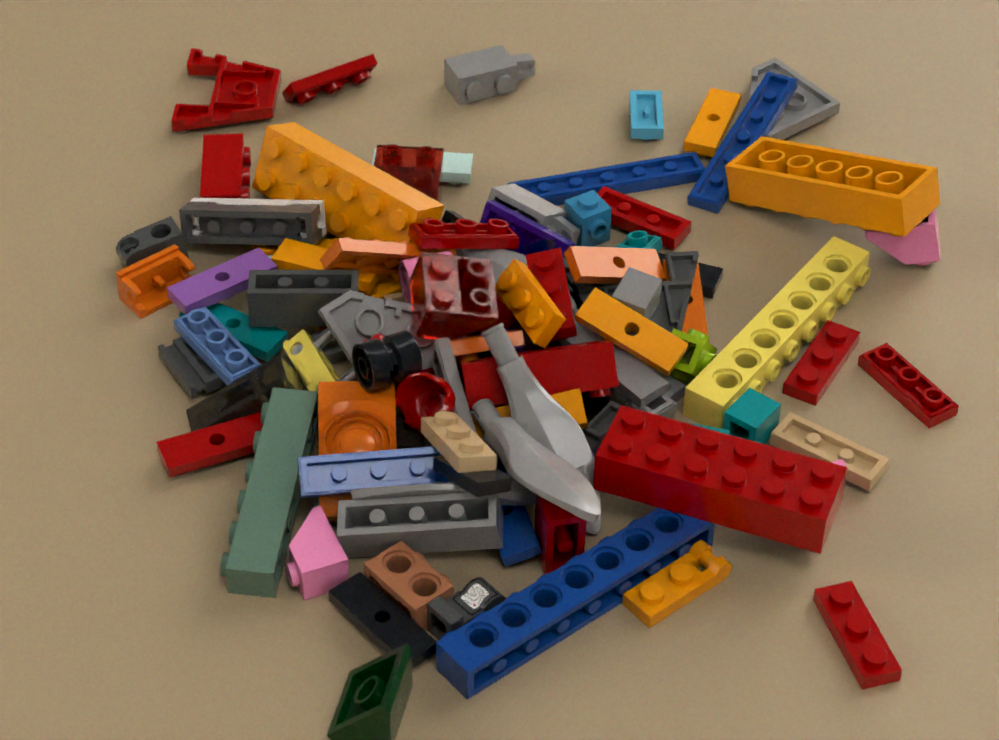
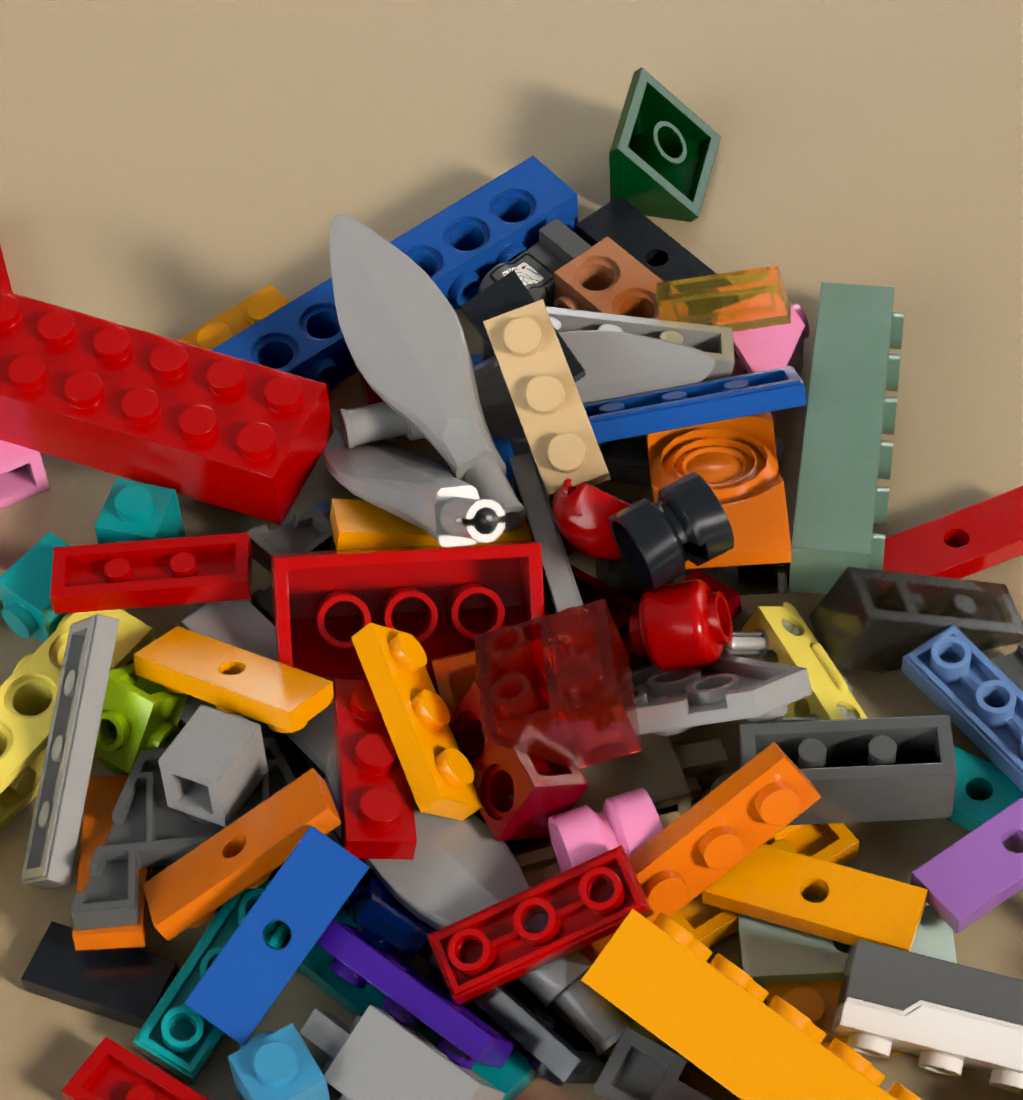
camera: 175 degrees left, 10 degrees up
(341, 531) = (728, 299): none -> clear yellow tile
(592, 234) = (248, 969): none -> blue tile
(687, 389) = (151, 573): none -> red plate
(716, 325) = (69, 752): none -> light grey tile

